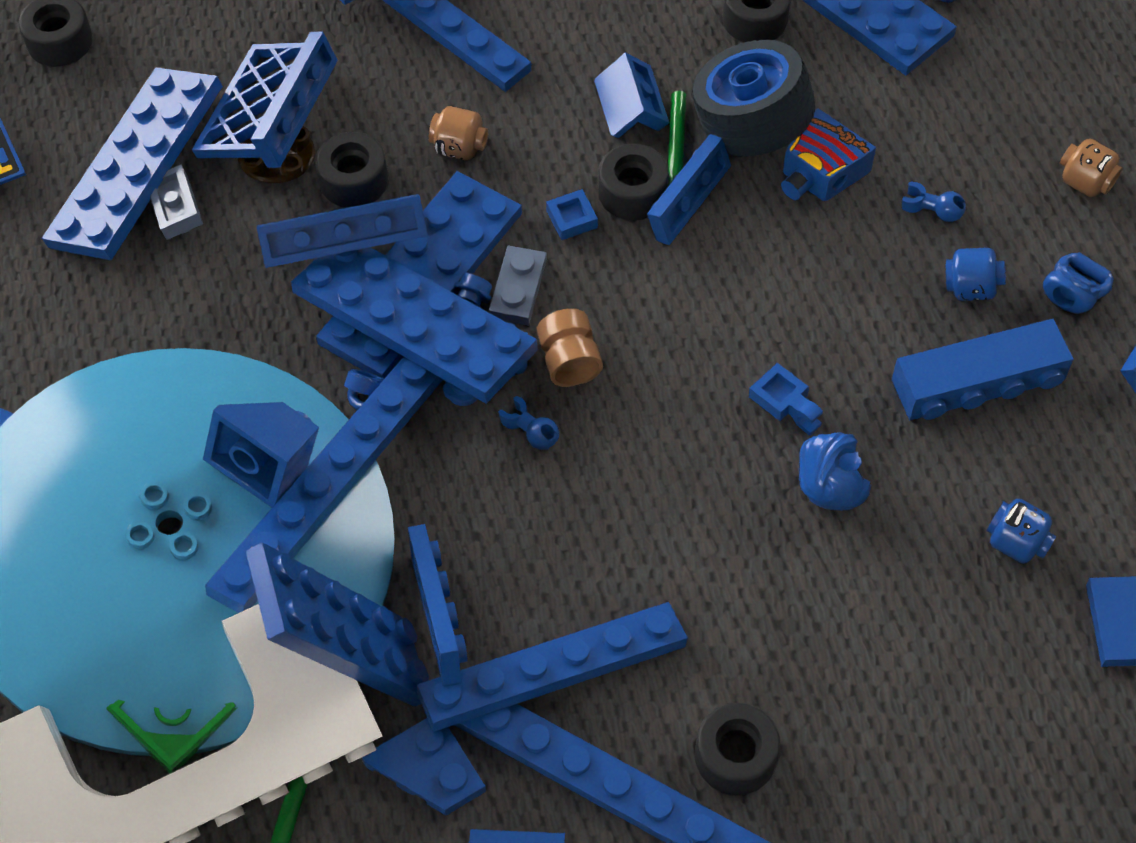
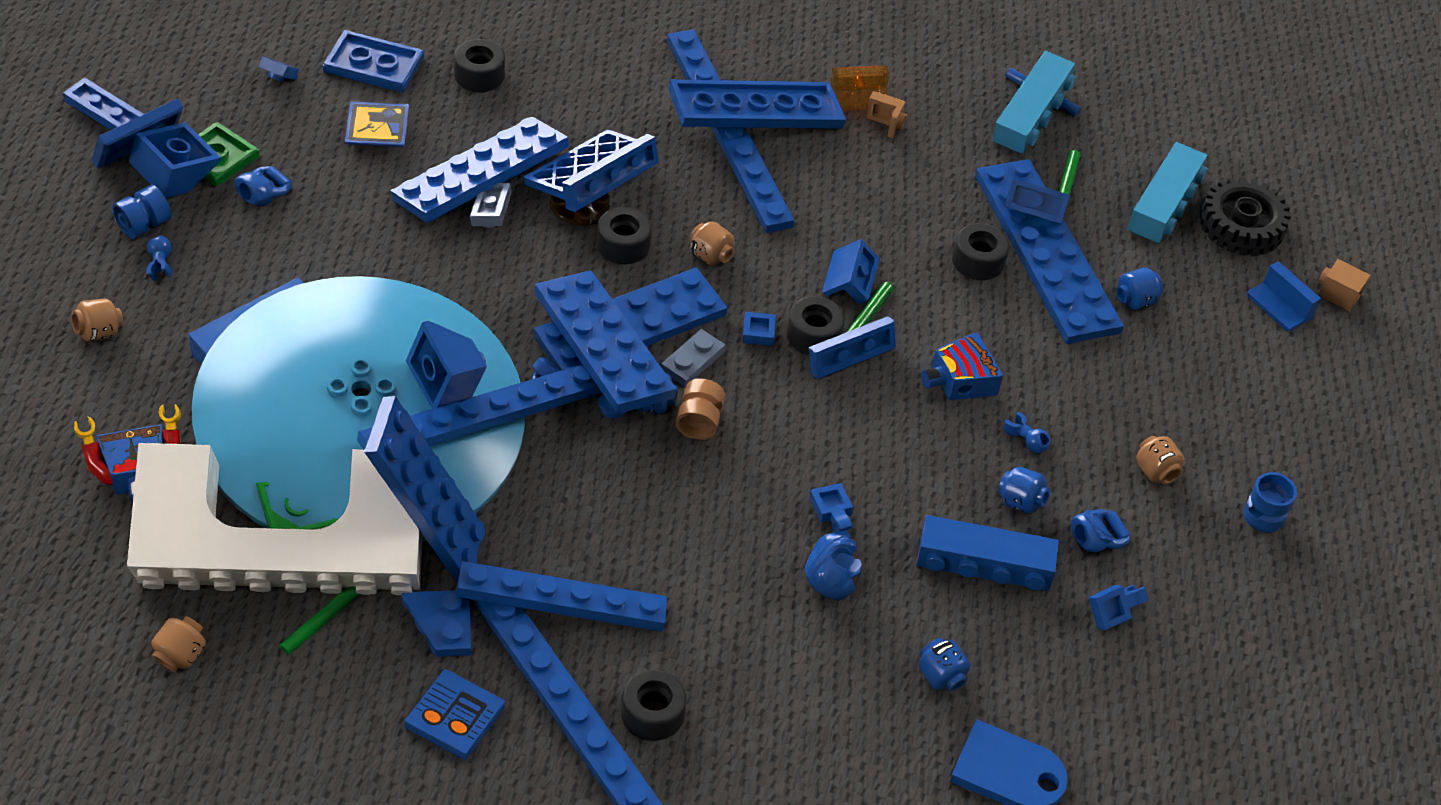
camera: 20 degrees right, 10 degrees down
(342, 230) = (587, 264): blue fence -> none
(440, 616) = (504, 521): blue plate -> none
(473, 289) = (659, 346): blue plate -> none
(539, 431) = (647, 453): blue arm -> none
(754, 97) = (934, 305): black wheel -> none

